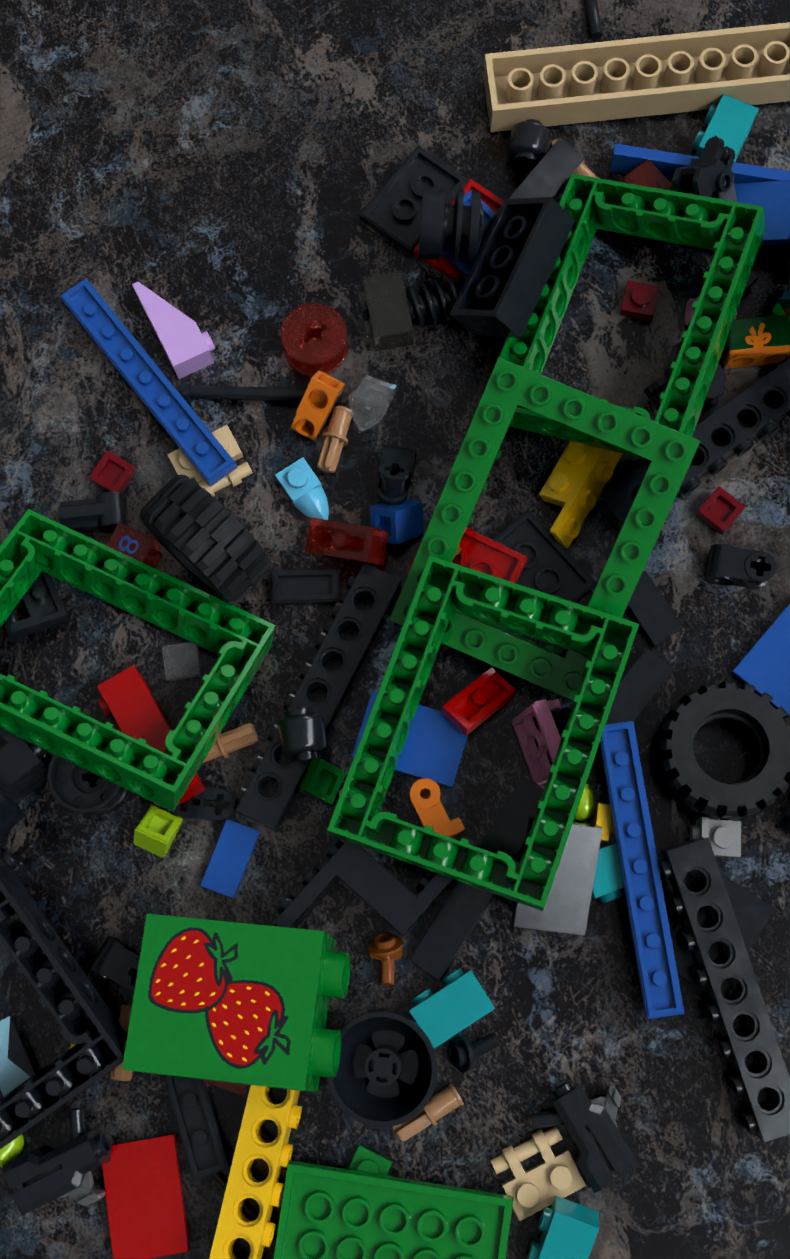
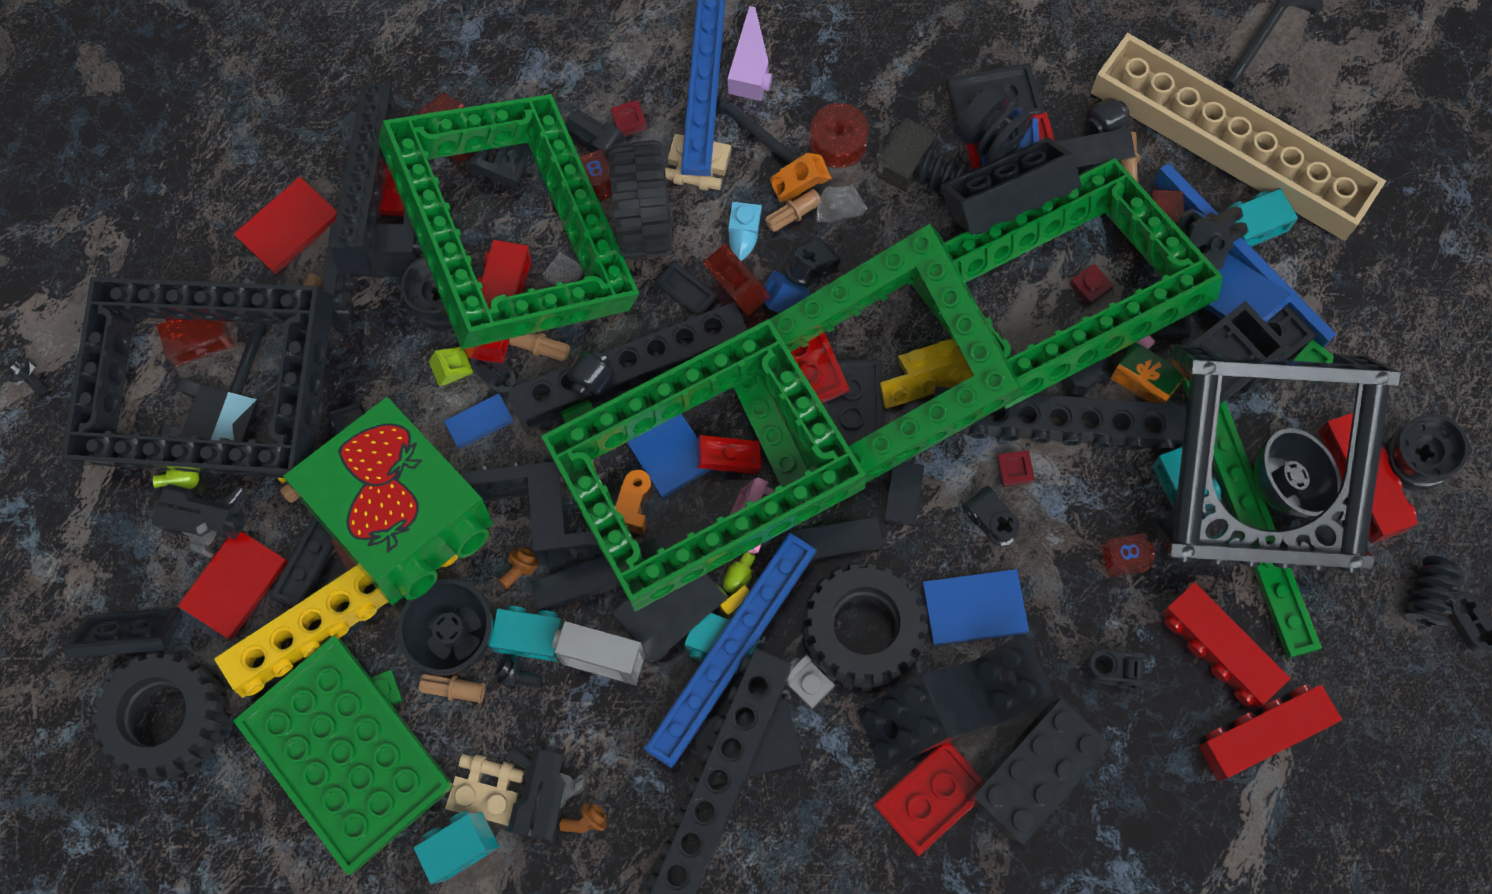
camera: 40 degrees right, 5 degrees down
(532, 970) = (599, 652): none -> light grey window
(650, 1114) = (592, 818): none -> dark orange plate

